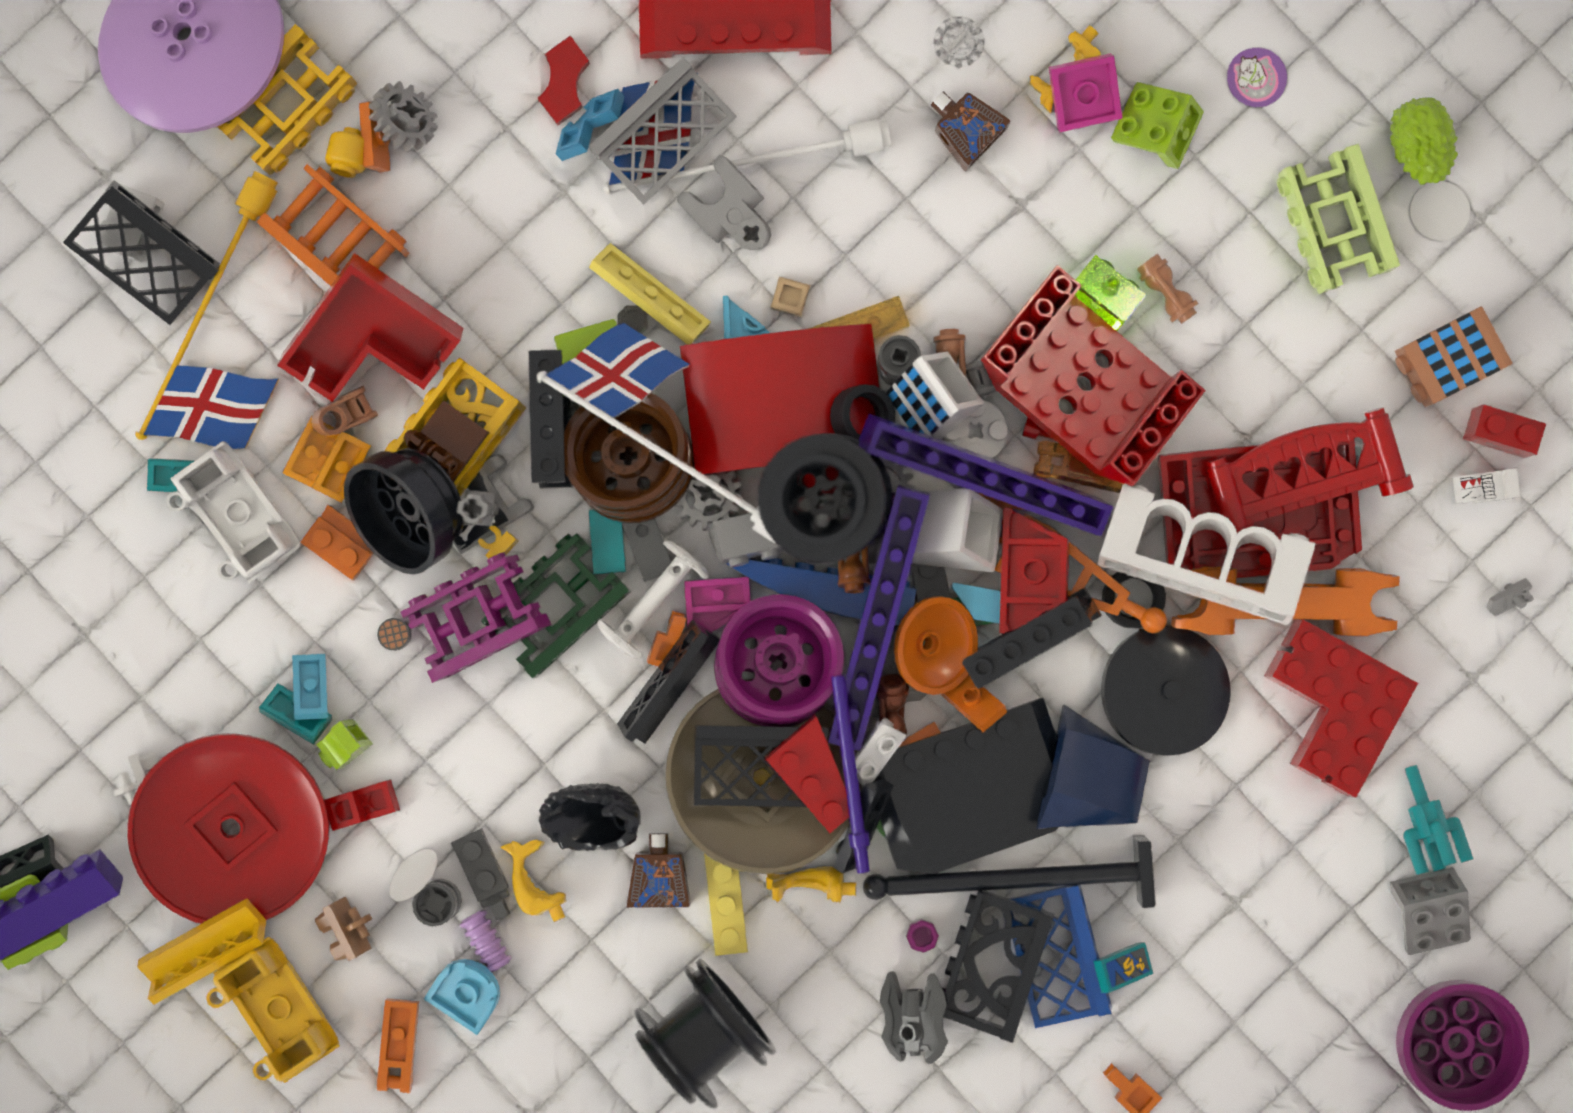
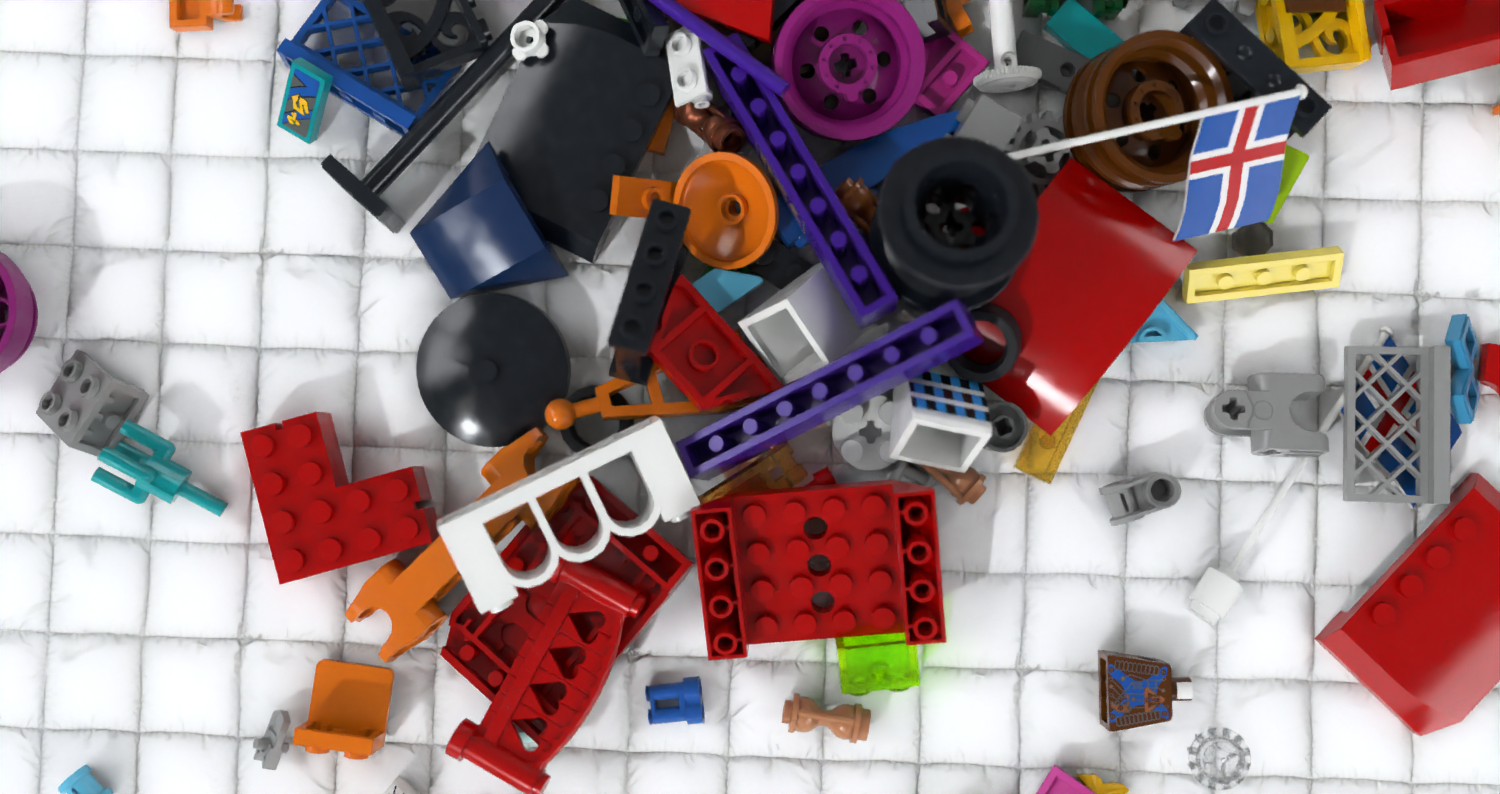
camera: 140 degrees right, 0 degrees up
(790, 296) = (1139, 392): tan tile -> none
(856, 237) = (1133, 499): none -> light grey piece
(954, 875) = (522, 32): none -> white plate
(1237, 379) = (690, 702): none -> blue piece
(1448, 572) = (347, 709): none -> orange bracket

